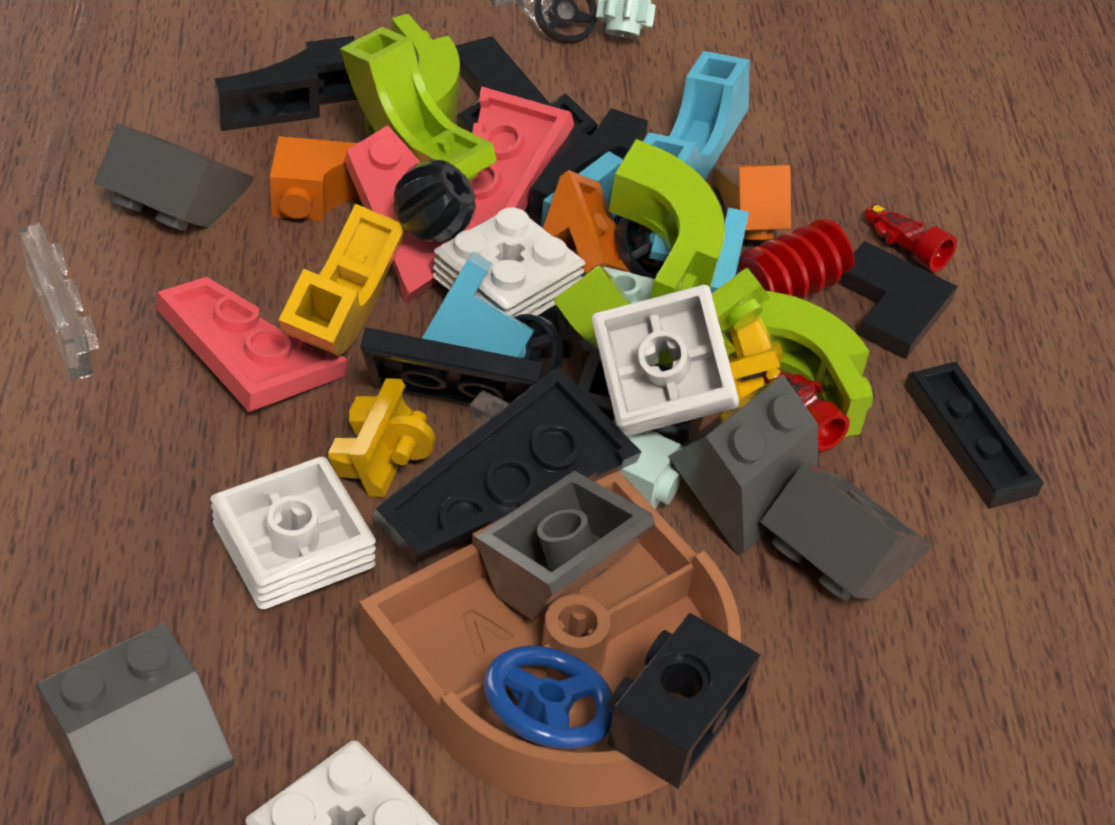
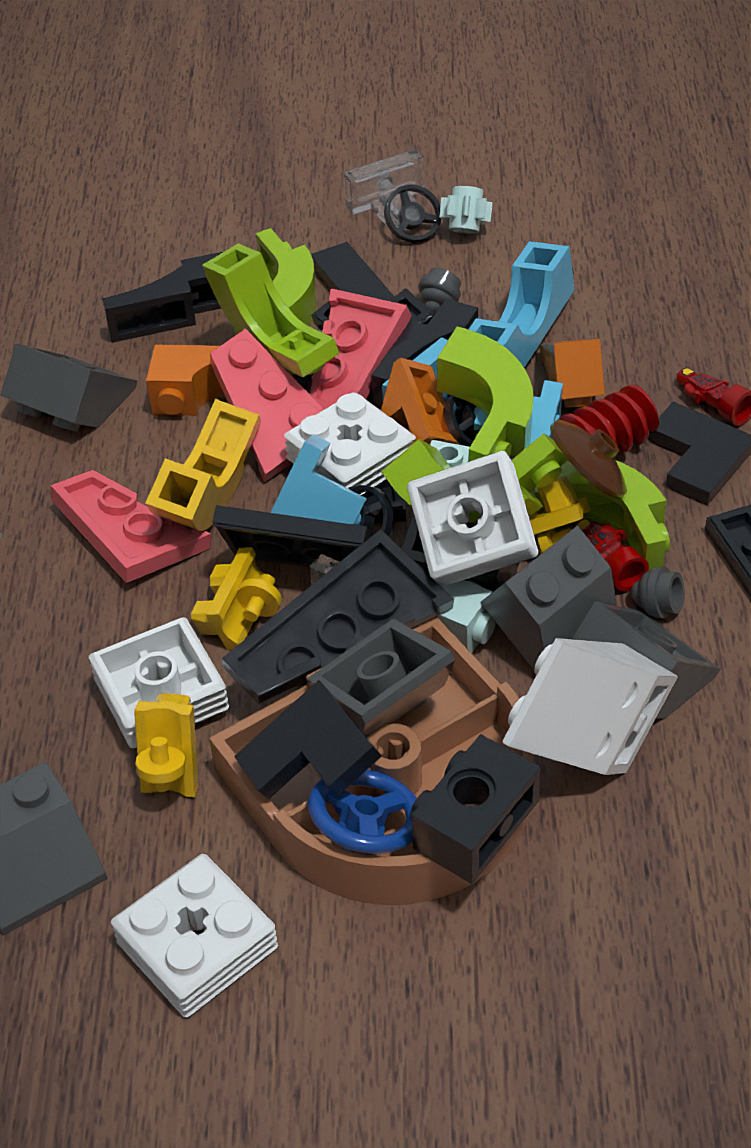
camera: 10 degrees right, 0 degrees up
(308, 608) = (166, 745): none -> yellow hips
(434, 201) = (282, 392): black piece -> none
(482, 600) = (307, 732): none -> black tile
(598, 95) = (438, 286): none -> dark grey plate
(793, 296) = (591, 456): none -> reddish brown dish
(805, 583) = (589, 705): none -> white slope
(861, 455) = (659, 592): none -> dark grey plate

